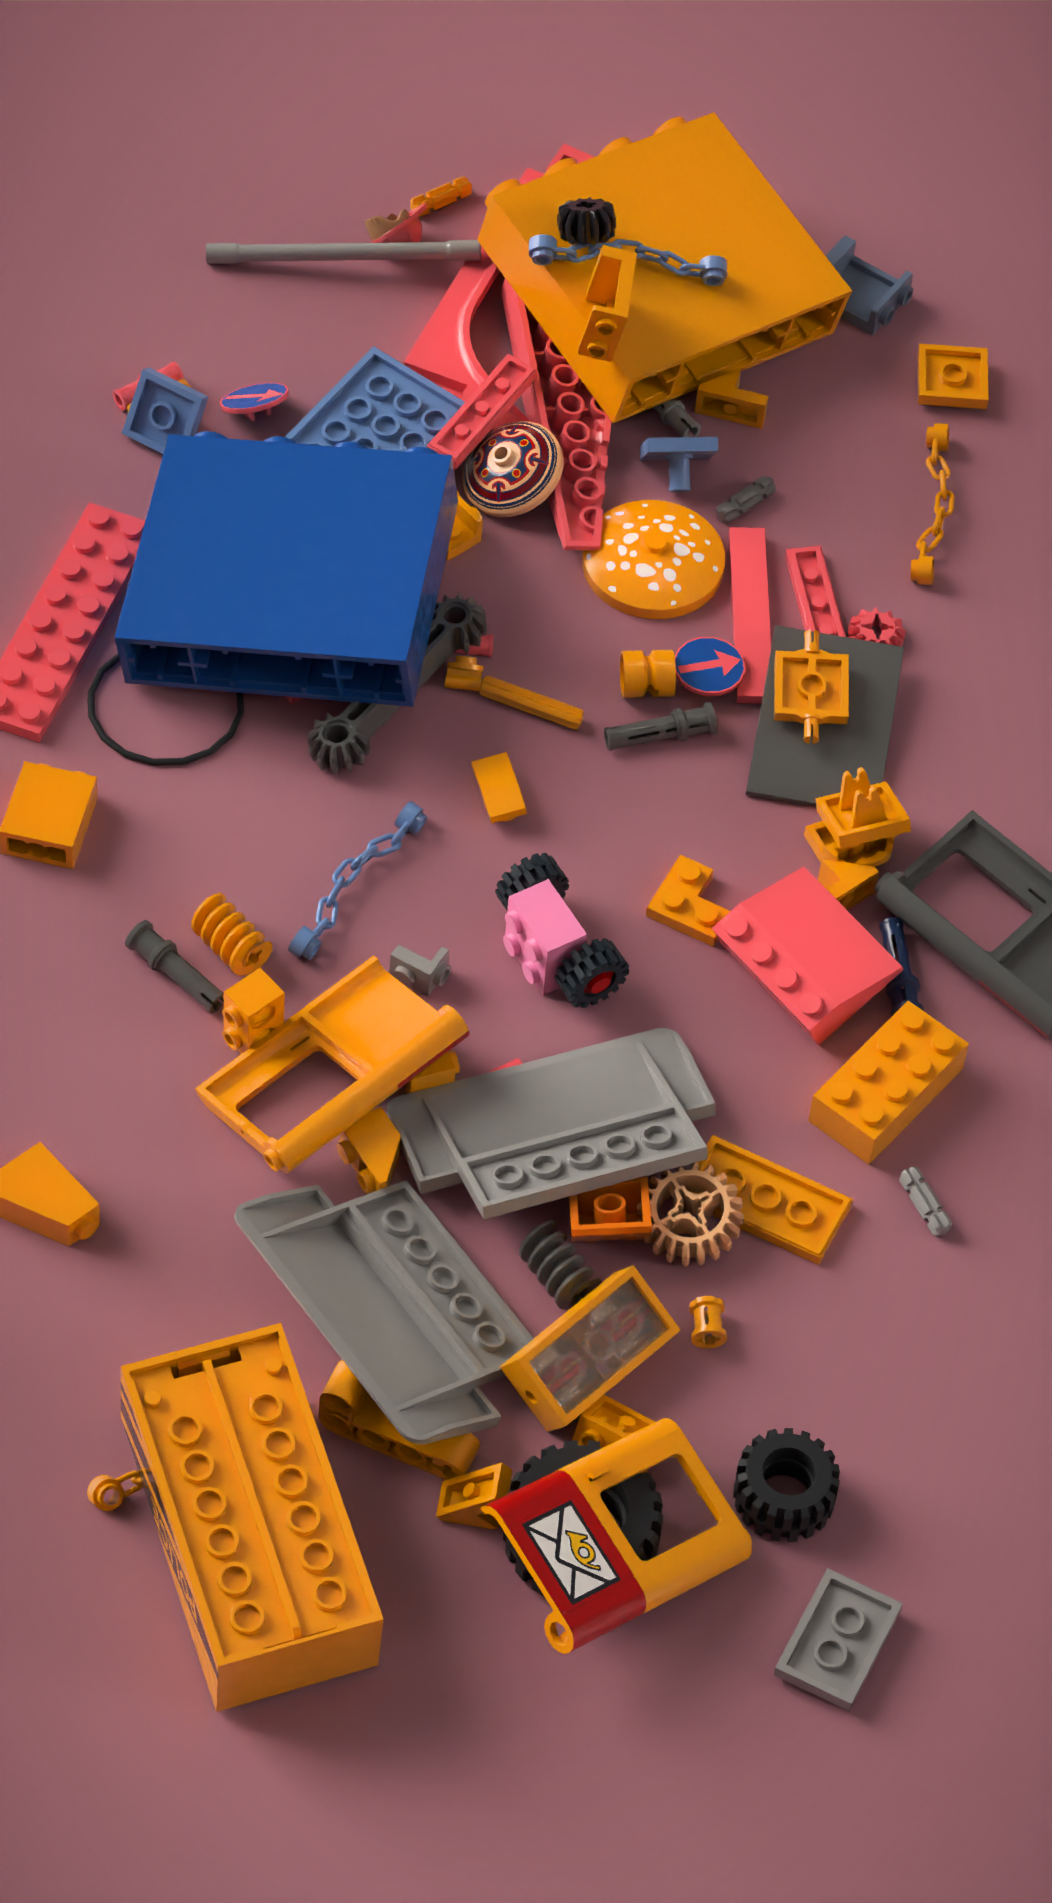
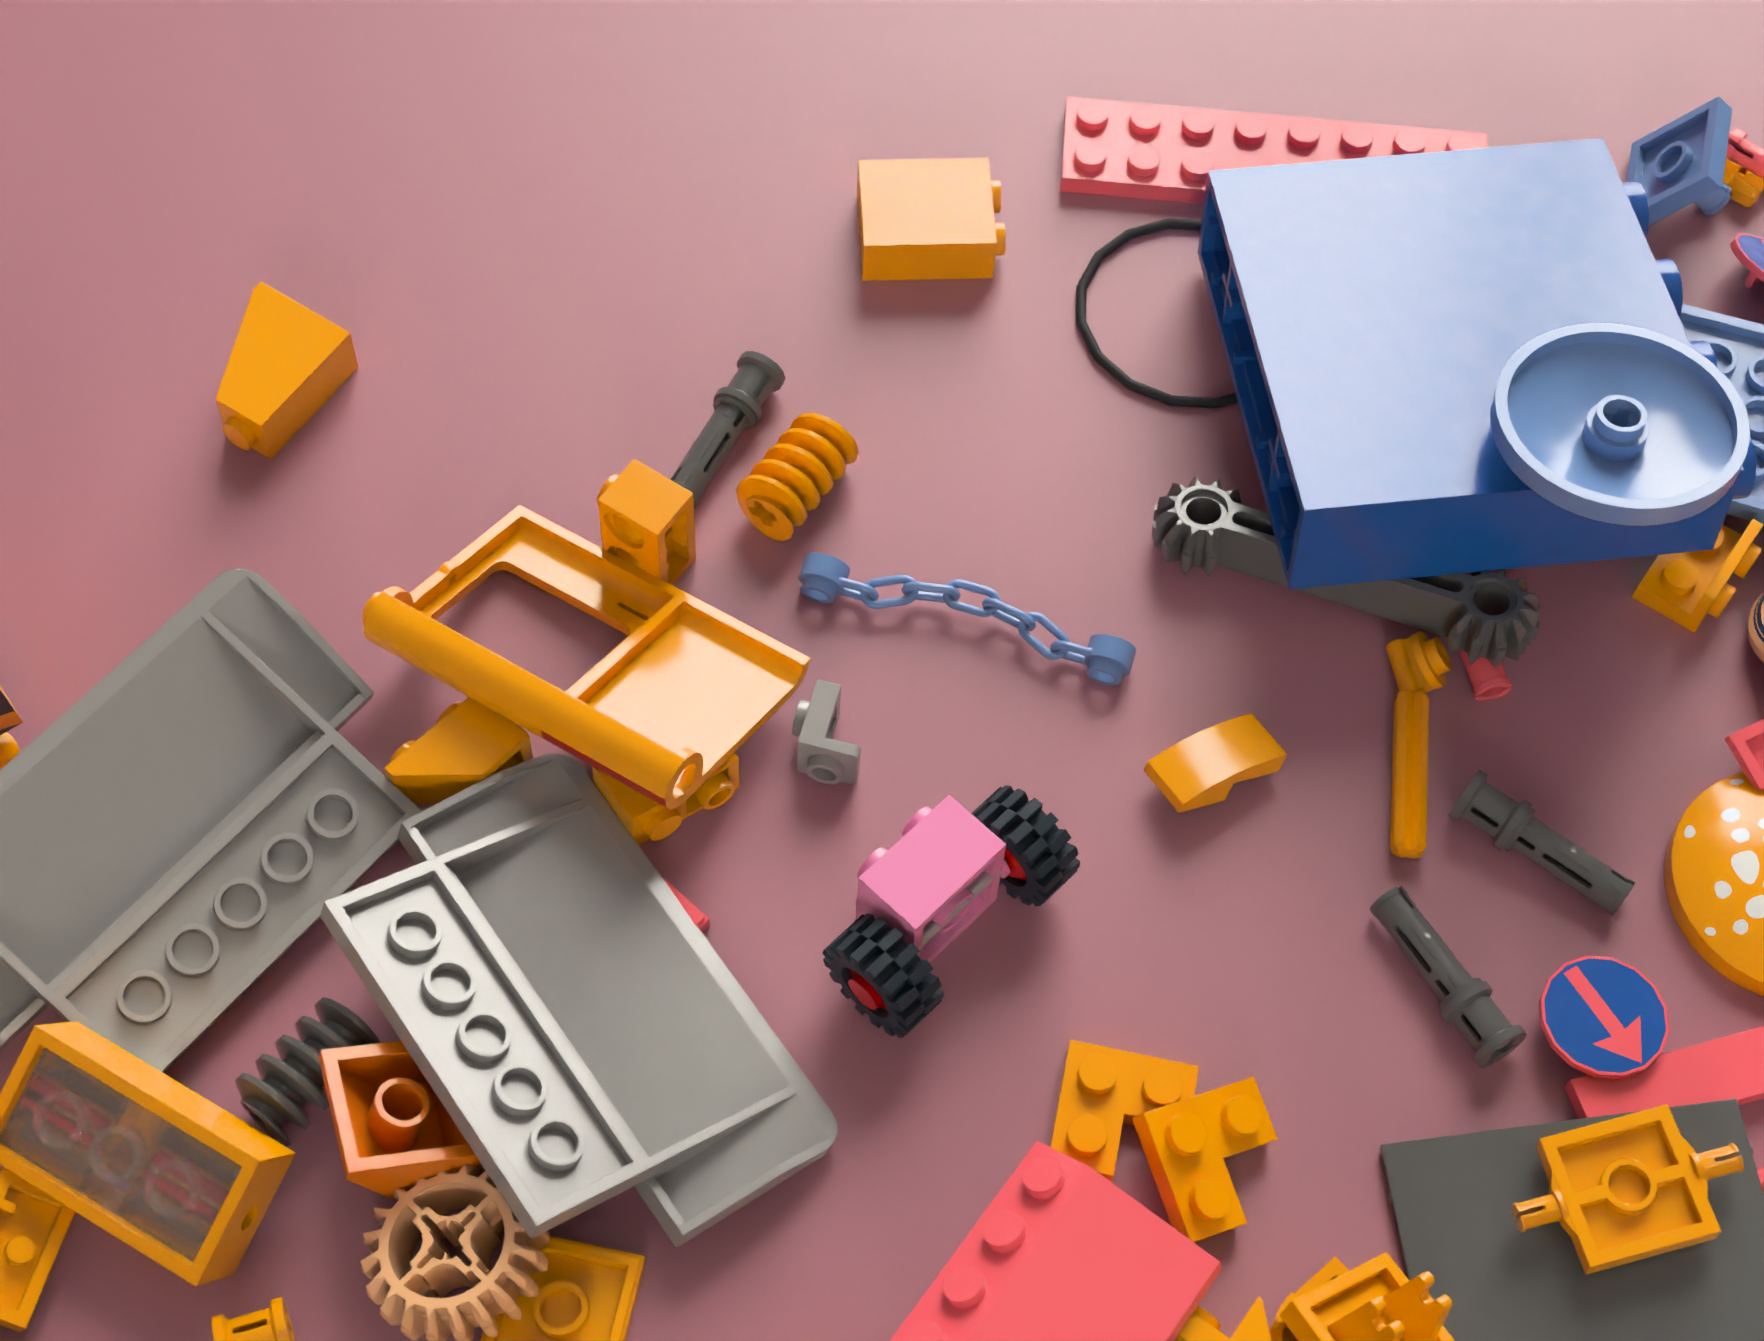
camera: 75 degrees right, 5 degrees up
(415, 493) = (1619, 424): none -> medium blue dish
(584, 664) = (1516, 827): none -> dark grey pin
(647, 673) = (1534, 913): light orange wheel -> none
(725, 870) = (1188, 1151): none -> light orange plate

